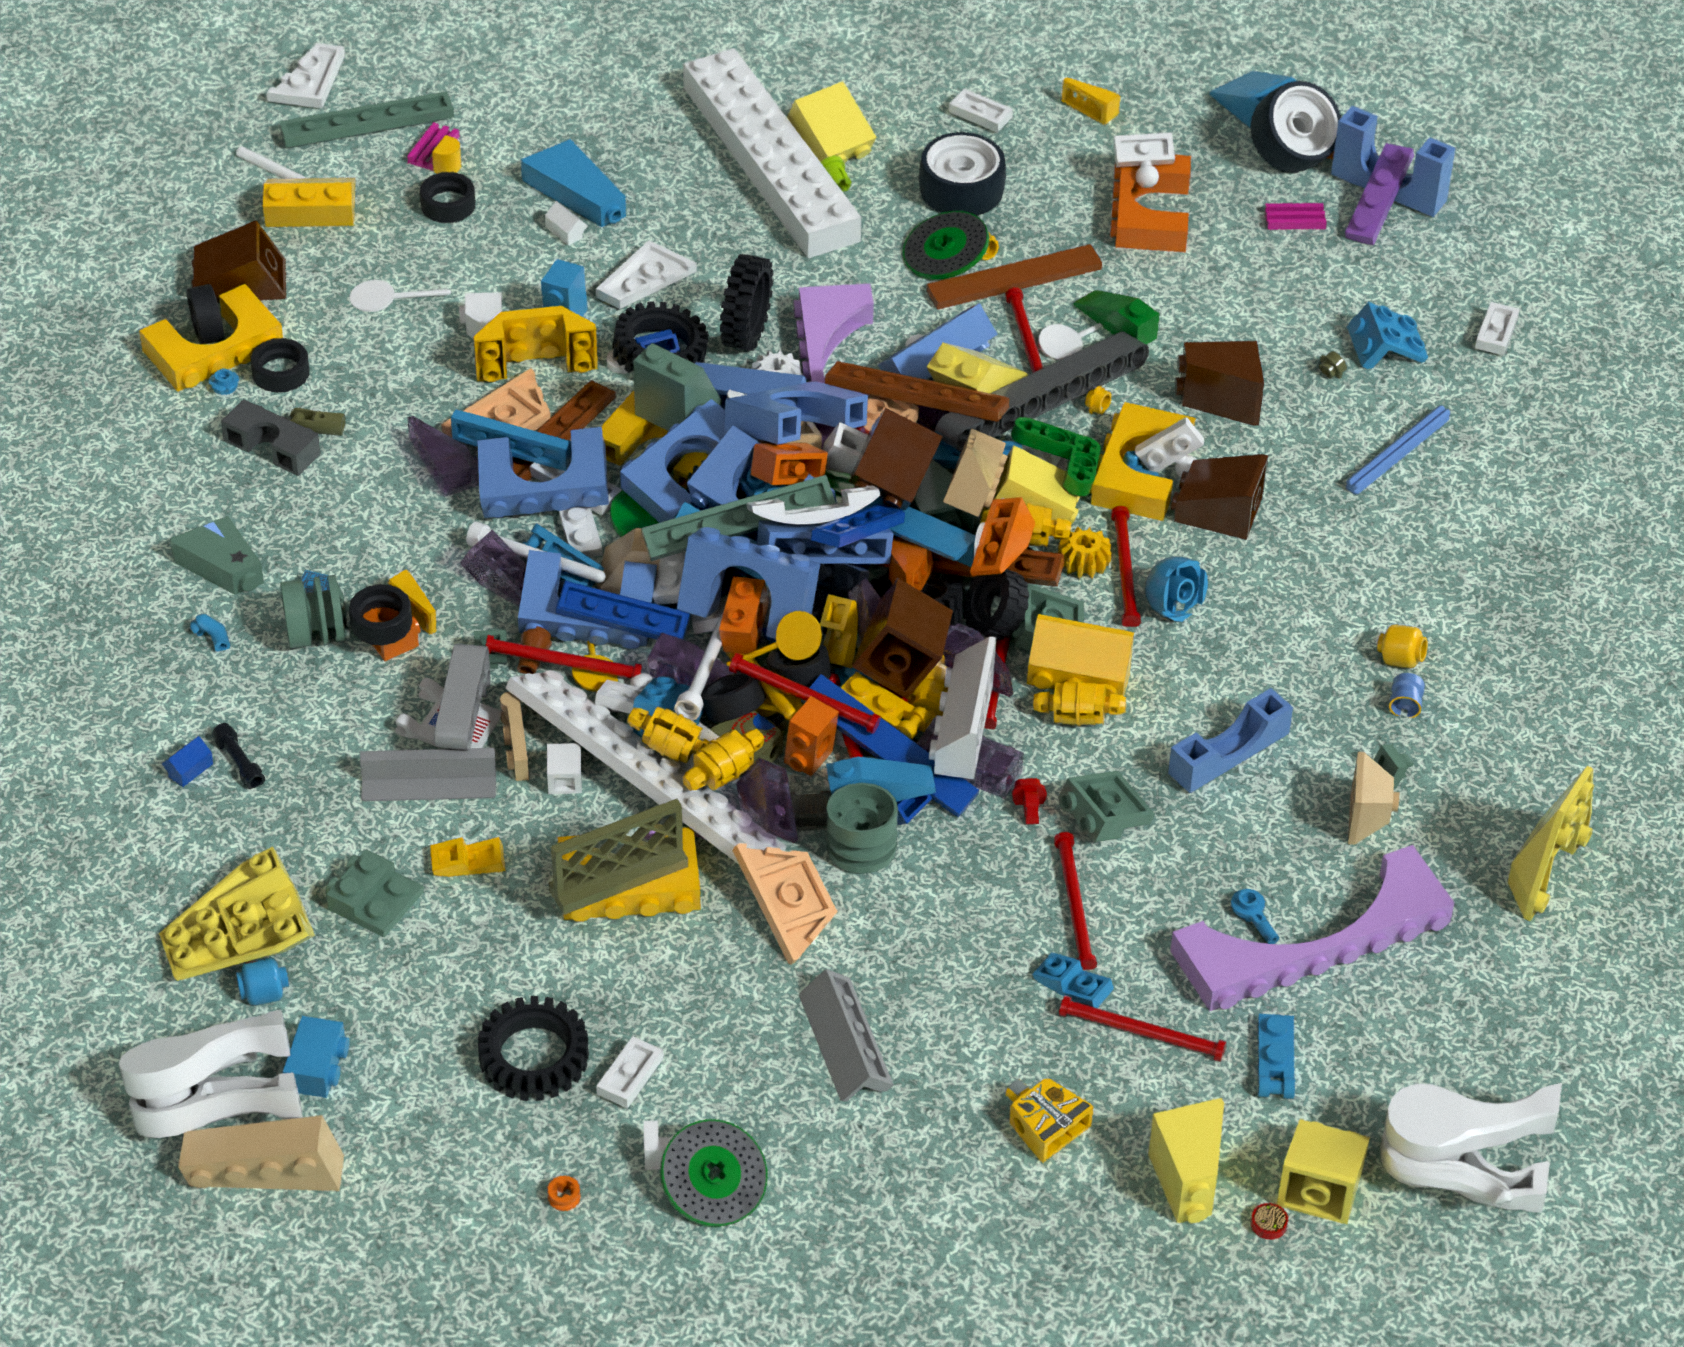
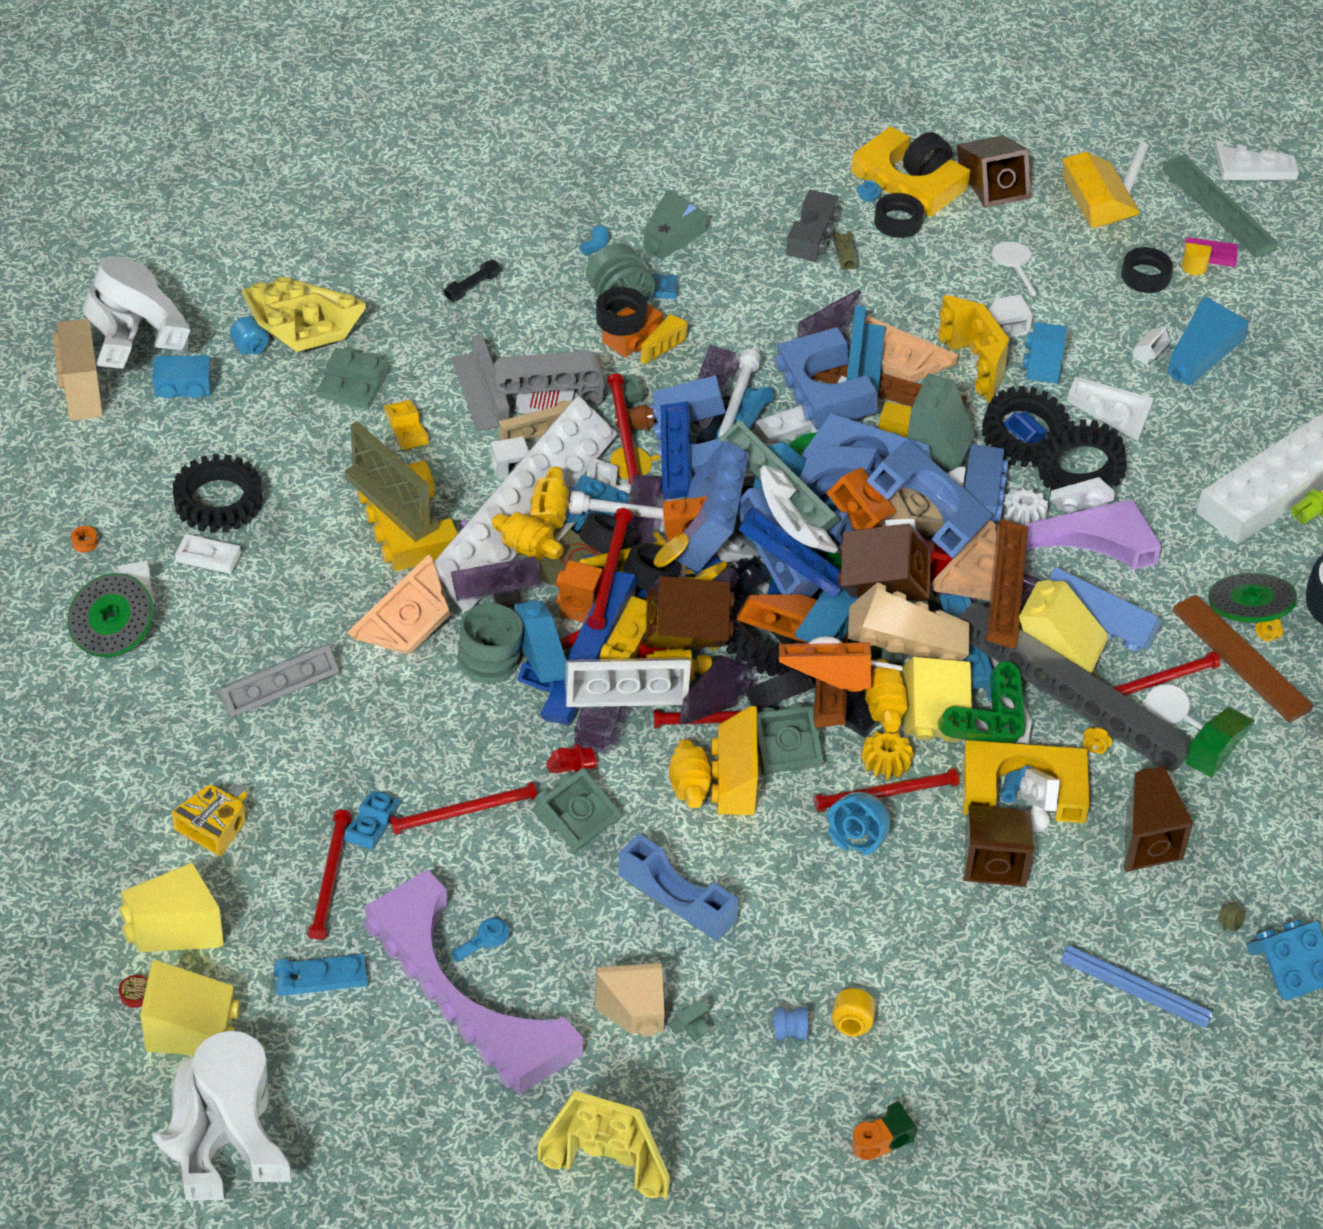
camera: 75 degrees right, 0 degrees up
(189, 762) = (454, 254): blue piece -> none
(786, 321) = (1082, 495): none -> white plate
(1544, 656) = (884, 1134): none -> leg

